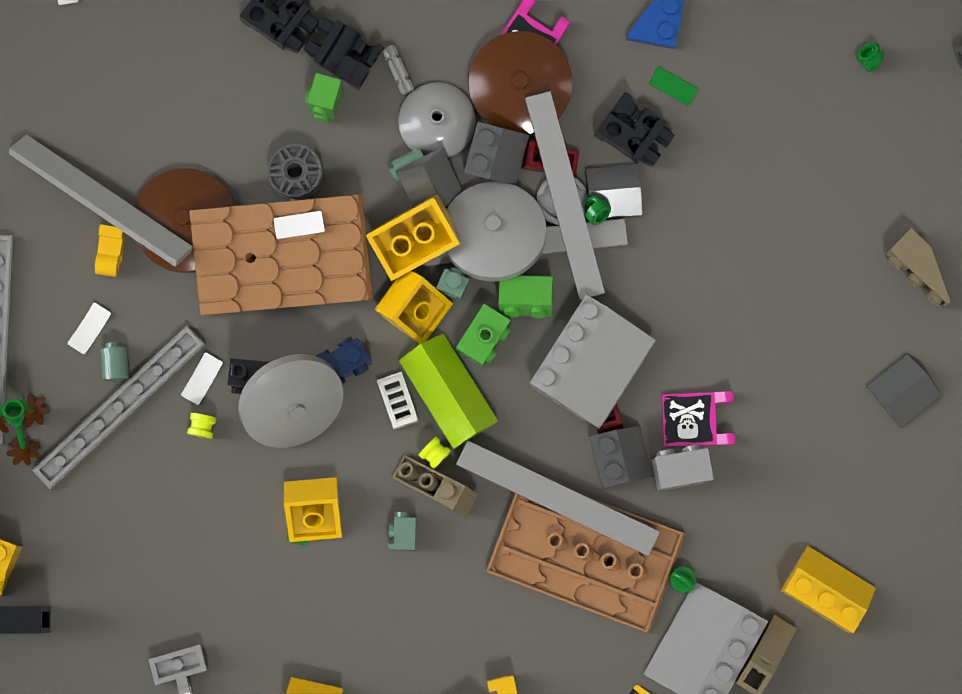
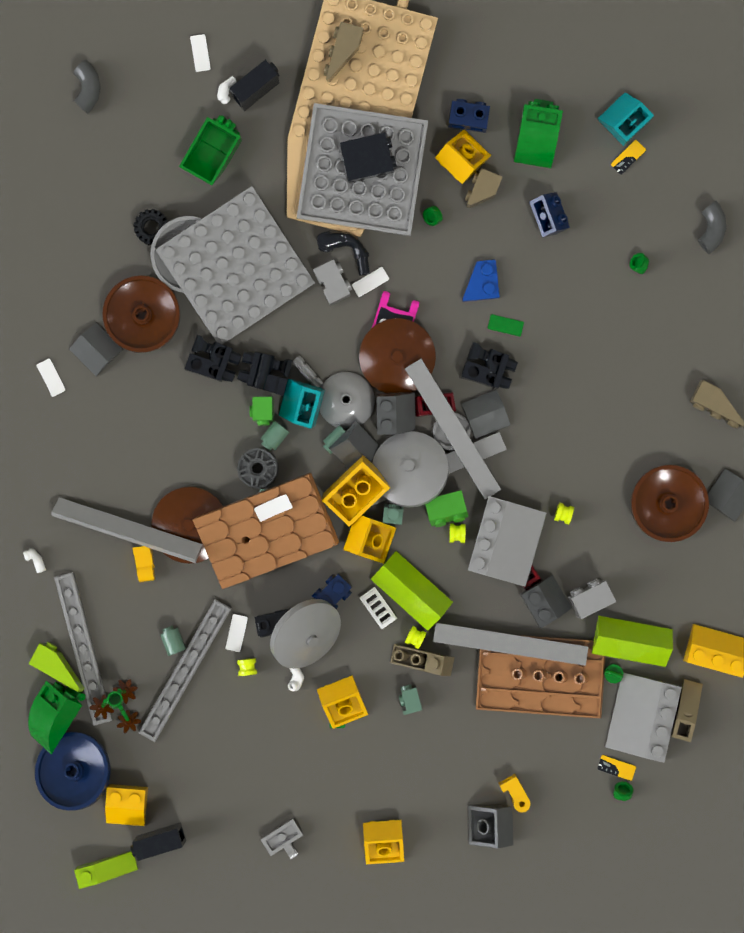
camera: 15 degrees left, 5 degrees up
(89, 328) = (146, 621): white sticker -> none
(262, 461) = (296, 680): none -> white arm
(329, 137) = (274, 436): none -> sand green brick
(378, 105) = (301, 403): none -> teal slope
(484, 335) = (425, 544): bright green brick -> none
(530, 333) = (457, 533): none -> neon yellow wheel
(596, 212) = (479, 434): green tile -> none
(678, 349) = (564, 513): none -> neon yellow wheel
(692, 419) = (588, 560): flag -> none
(720, 544) = (633, 641): none -> lime slope
(821, 376) = (669, 503): none -> reddish brown dish

